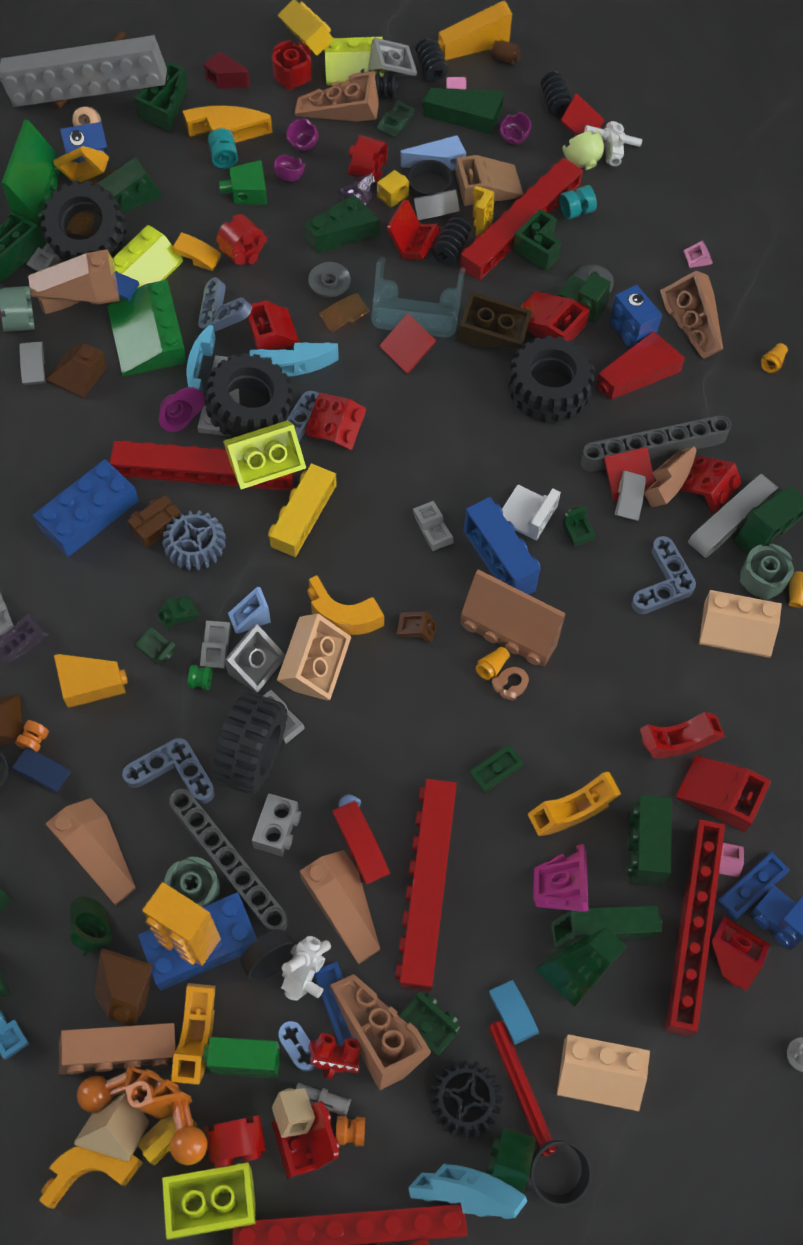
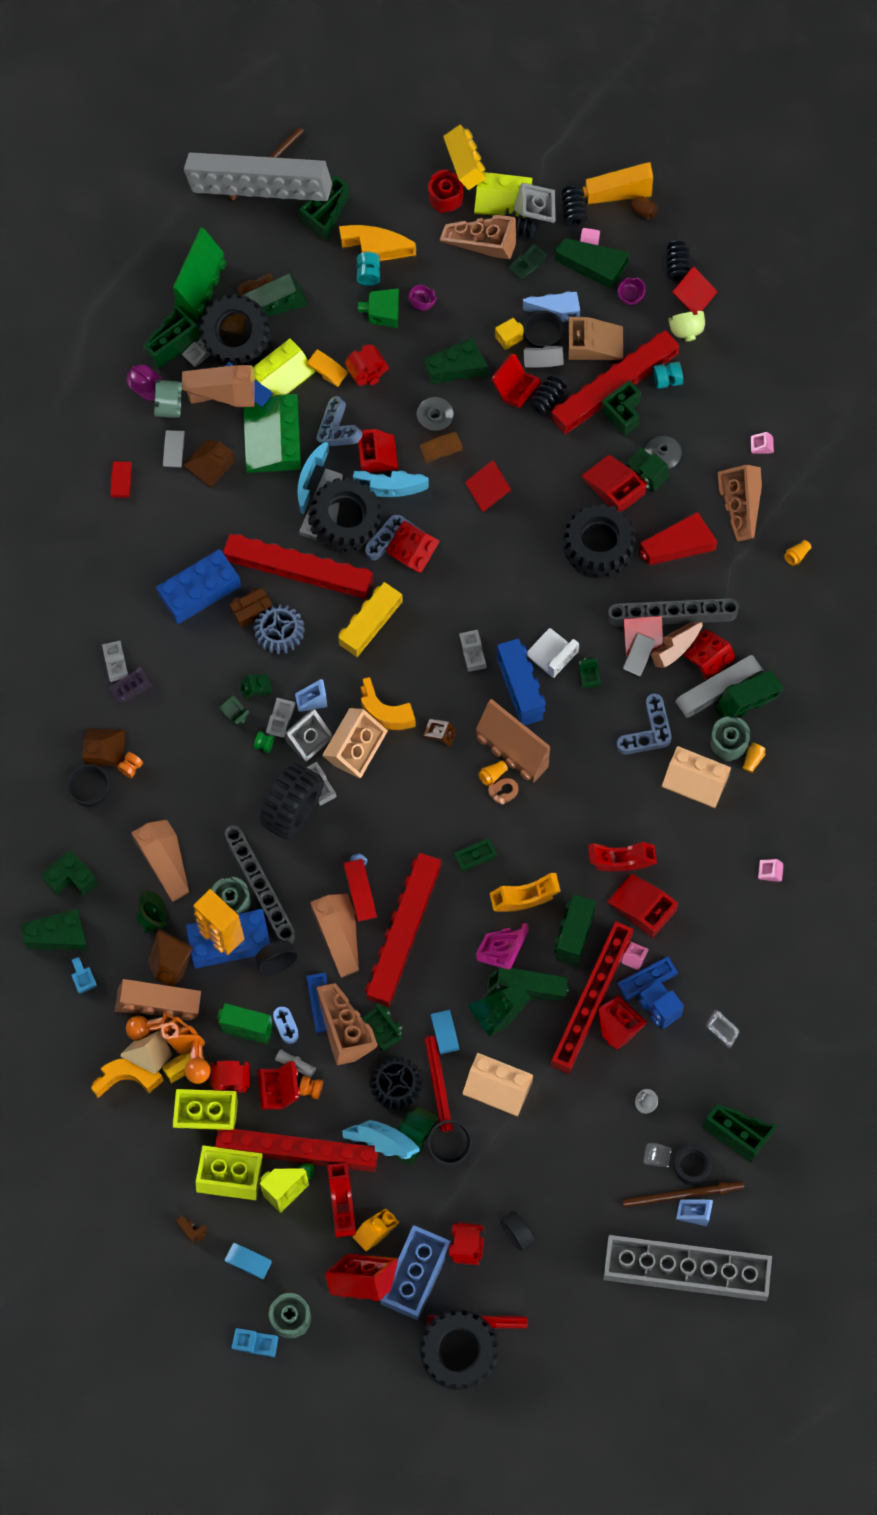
camera: 15 degrees right, 5 degrees up
(41, 769) = (133, 791): dark blue slope -> none
(81, 114) = (254, 220): light nougat head -> none
(84, 135) = (248, 245): blue brick -> none
(88, 679) = (179, 728): light orange slope -> none
(93, 165) = (244, 268): light orange tile -> none
(171, 761) = (231, 803): sand blue beam -> none
(180, 408) = (287, 513): magenta piece -> none
(196, 1033) = (215, 999): light orange arch -> none
(225, 72) = (385, 189): dark red slope -> none
(265, 454) = (348, 568): neon yellow slope -> none
(269, 824) = (295, 864): light grey brick -> none
(293, 1112) = (273, 1066): tan brick -> none
(301, 969) = (297, 971): white piece -> none
(302, 135) = (440, 266): magenta hair -> none
(333, 1057) = (309, 1037): red hips -> none
(359, 187) = (477, 329): clear purple slope -> none
(367, 157) = (492, 302): red brick -> none
(436, 318) = (512, 462): clear light blue windscreen -> none
(482, 209) = (581, 371): yellow bracket -> none
(492, 323) = (563, 480): dark brown slope -> none
(614, 140) = (718, 314): white piece -> none
(634, 316) = (684, 496): blue brick -> none

